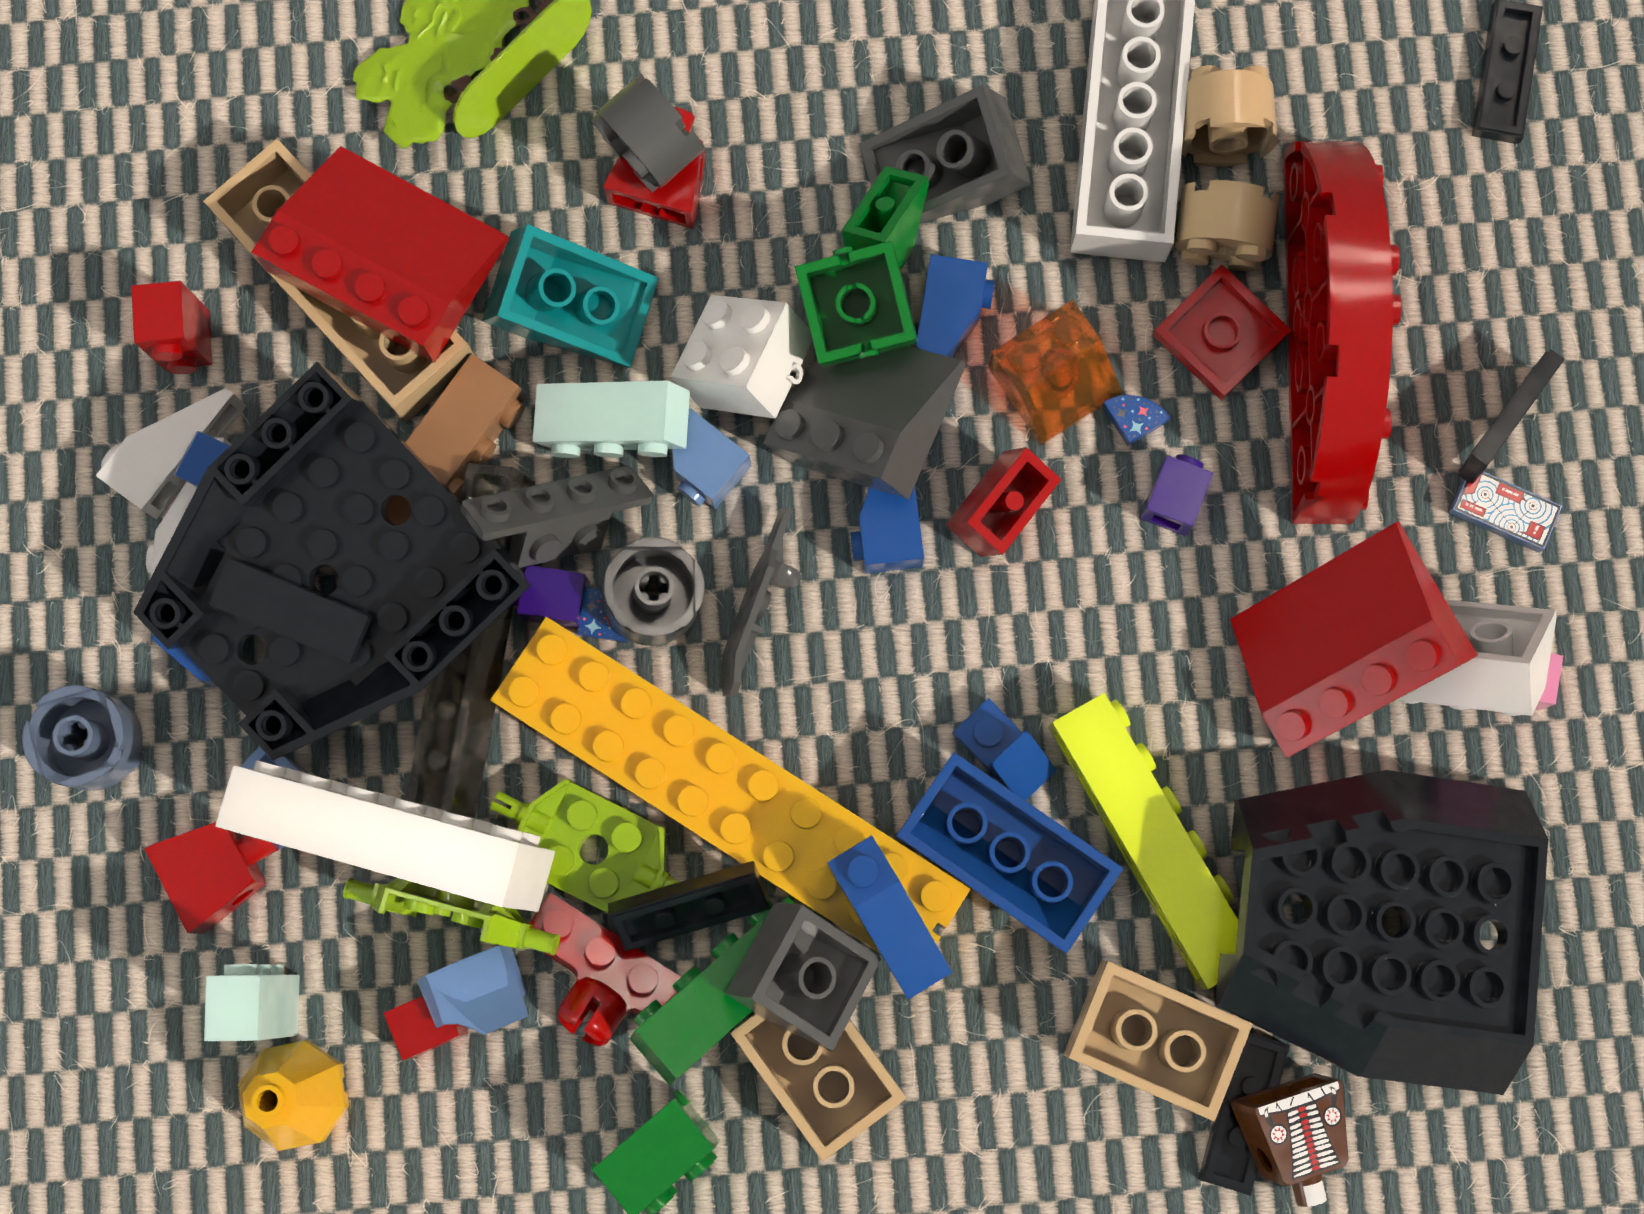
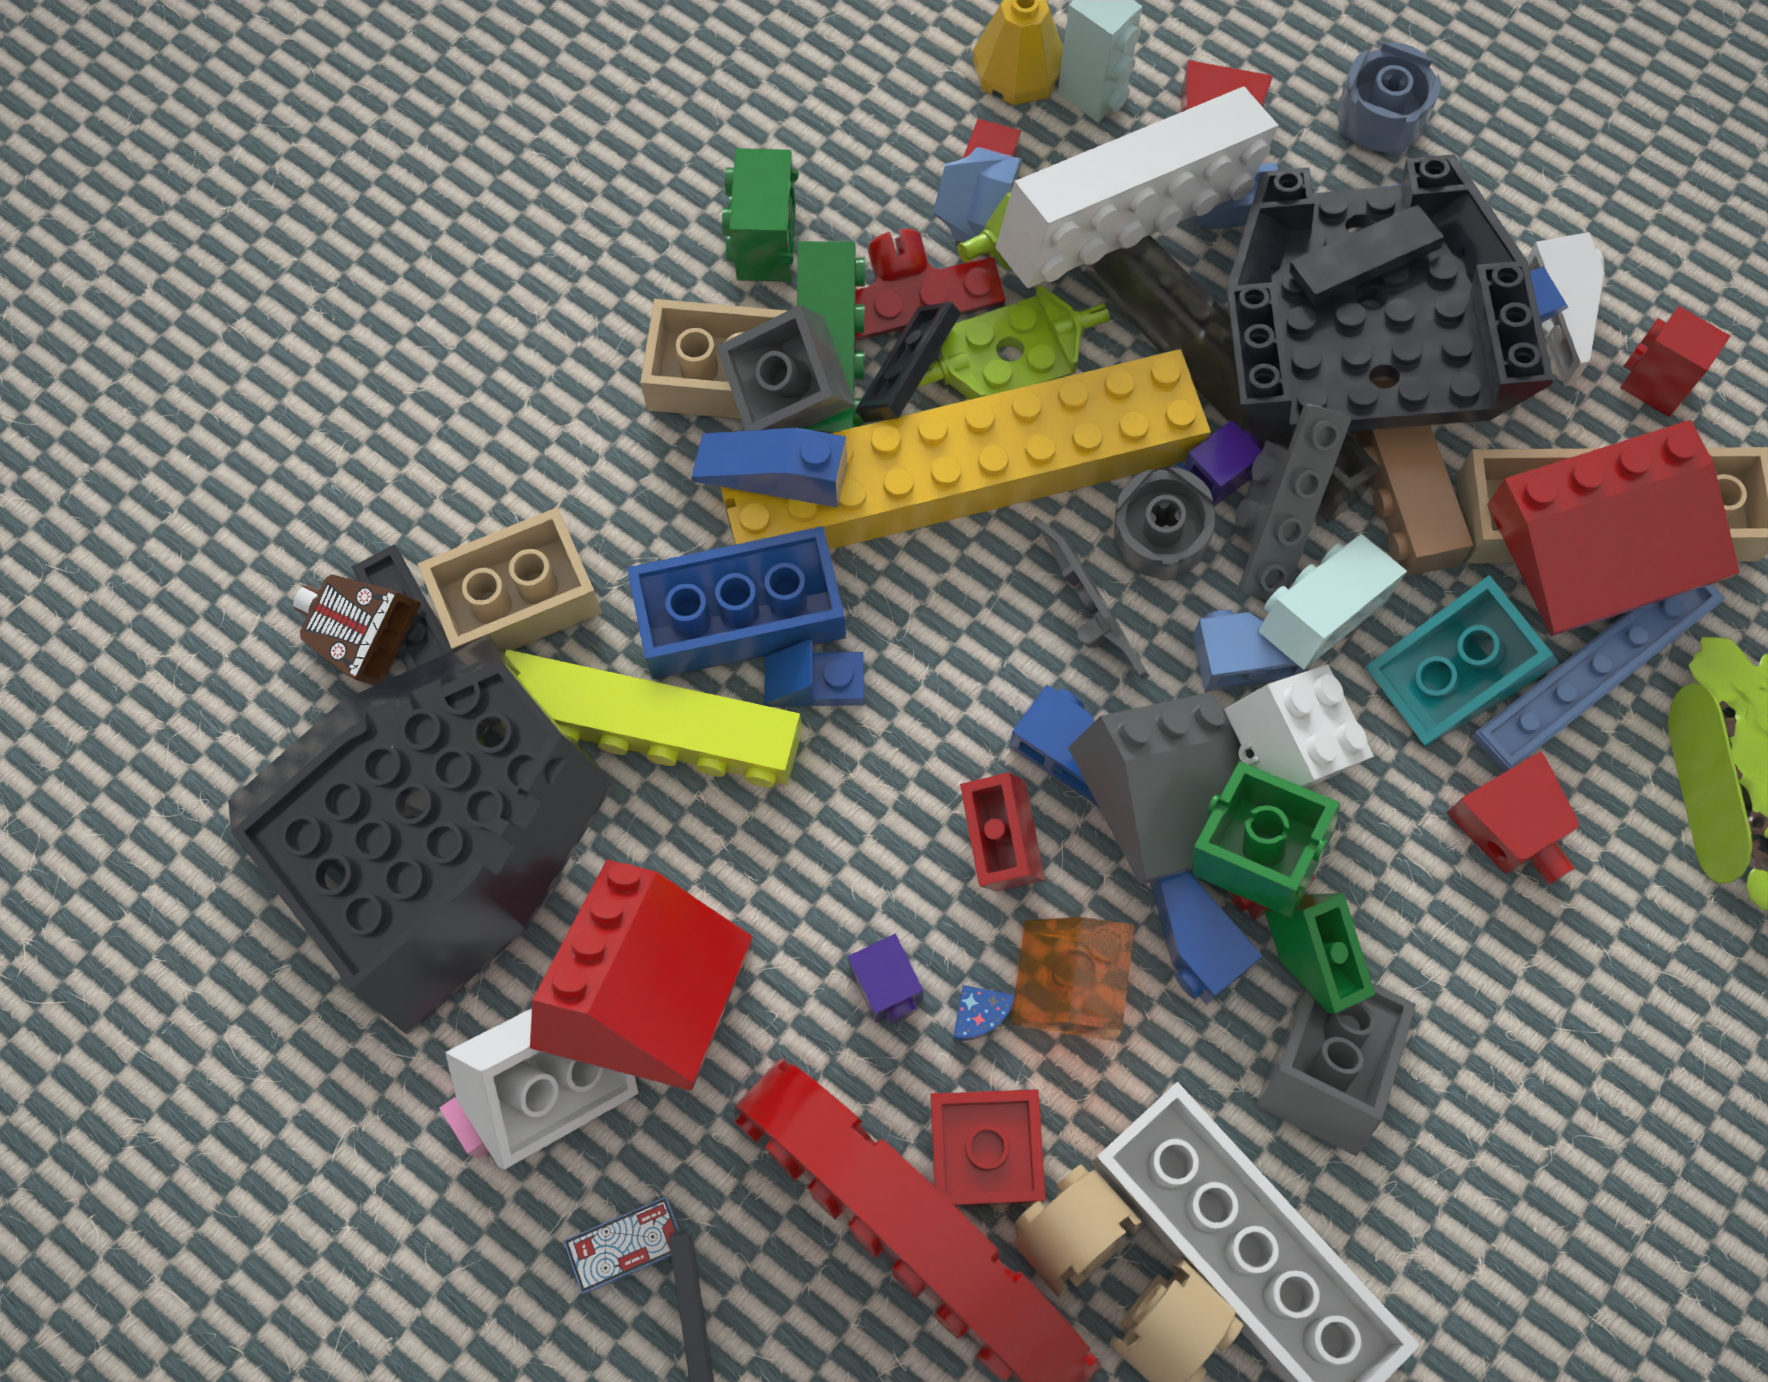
camera: 130 degrees right, 10 degrees down
(506, 208) = (1590, 675): none -> medium blue tile
(647, 133) = (1561, 801): dark grey brick -> none

